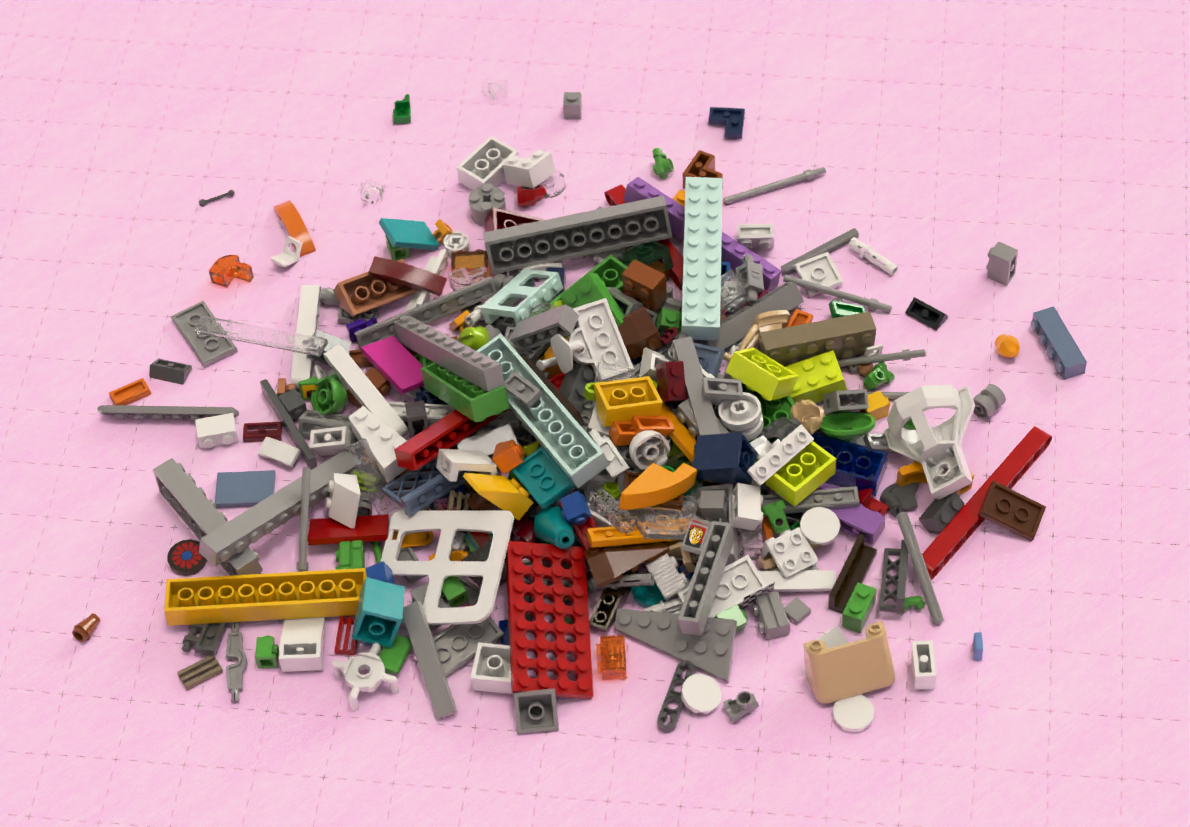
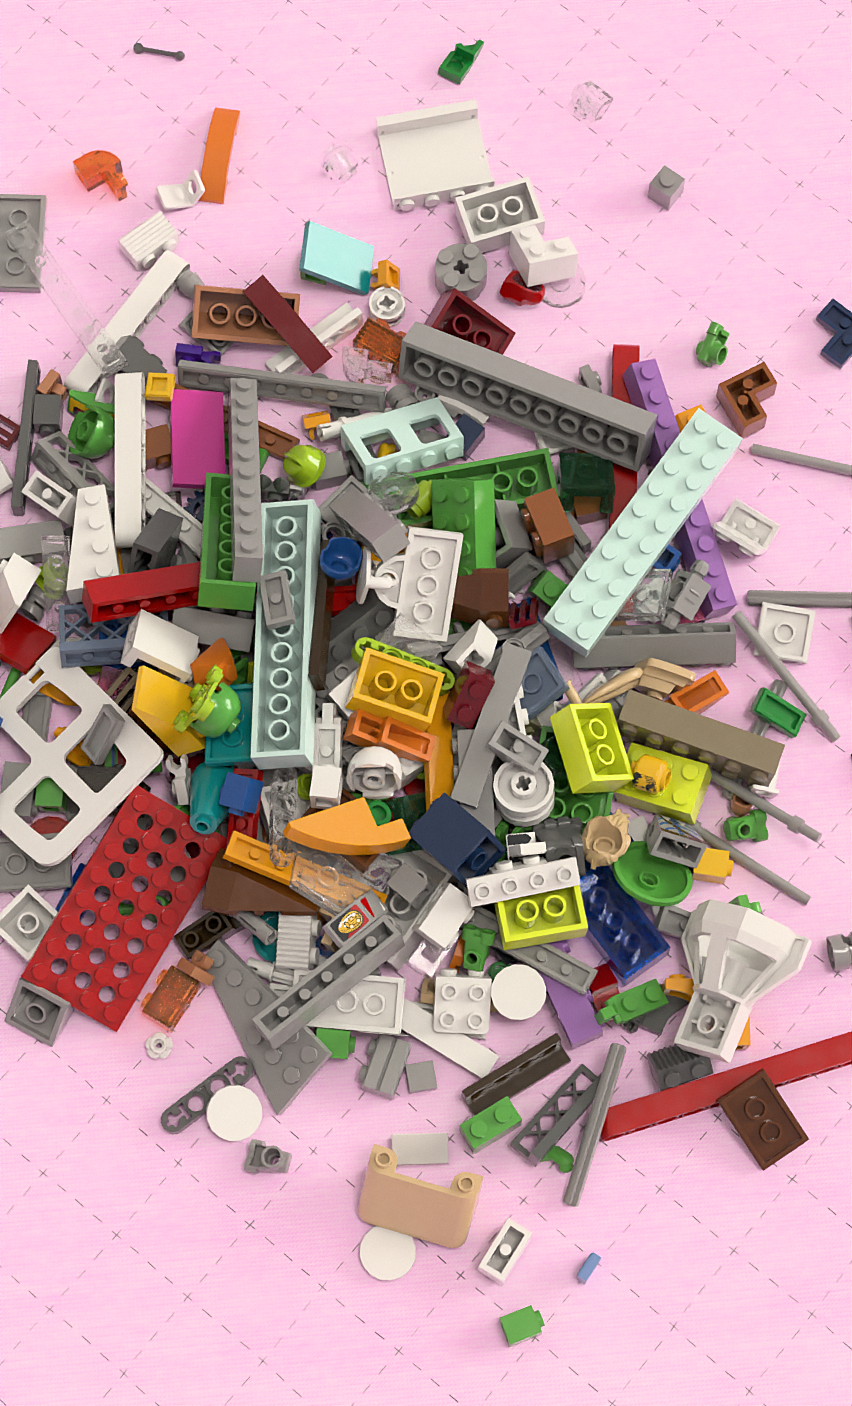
camera: 30 degrees right, 20 degrees up
(286, 288) = (149, 241): none -> white brick
(354, 348) = (160, 386): none -> yellow tile
(421, 161) = (433, 154): none -> white panel
(465, 529) = (103, 734): none -> light grey tile
(523, 456) = (202, 701): none -> lime plant
(531, 470) = (223, 716): none -> bright green cylinder
(531, 535) = (182, 779): none -> white plate
(541, 353) = (341, 558): none -> blue hair
(617, 628) = (198, 967): none -> nougat tile
(625, 470) = (326, 786): none -> white brick
(628, 692) = (160, 1053): none -> white plate
(767, 440) = (527, 849): none -> white tile
(806, 369) = (650, 774): none -> yellow head
(890, 495) = (633, 1003): none -> bright green hinge
(964, 699) = (521, 1325): none -> bright green brick

